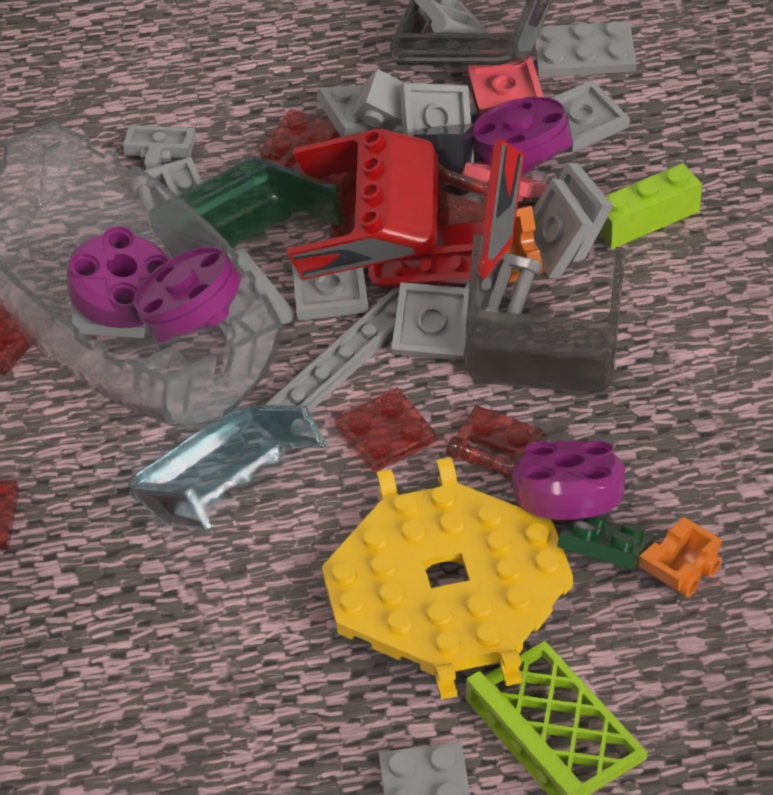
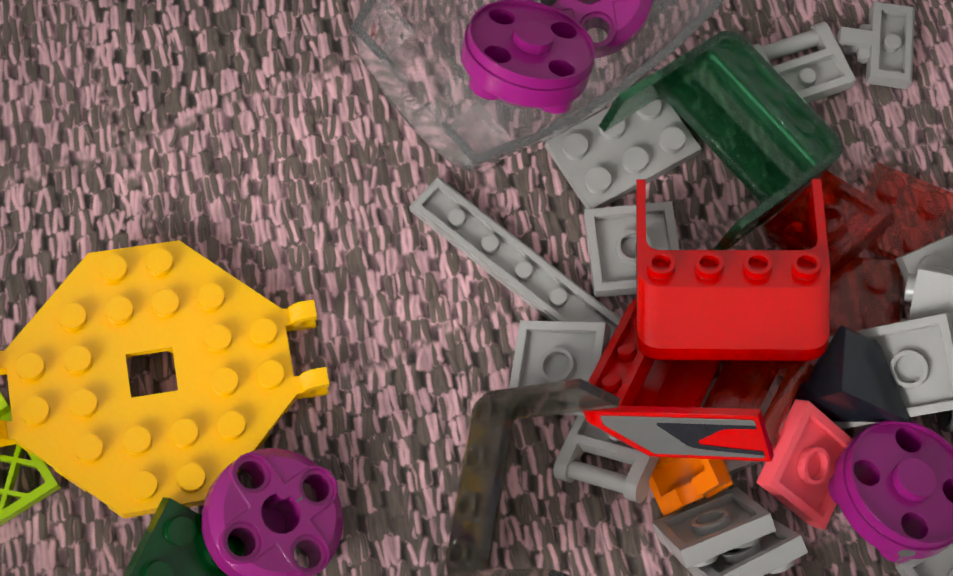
camera: 90 degrees right, 20 degrees up
(219, 458) = (339, 115): clear light blue windscreen -> none
(386, 430) = (400, 317): clear red plate -> none
(495, 433) = (381, 451): clear red plate -> none

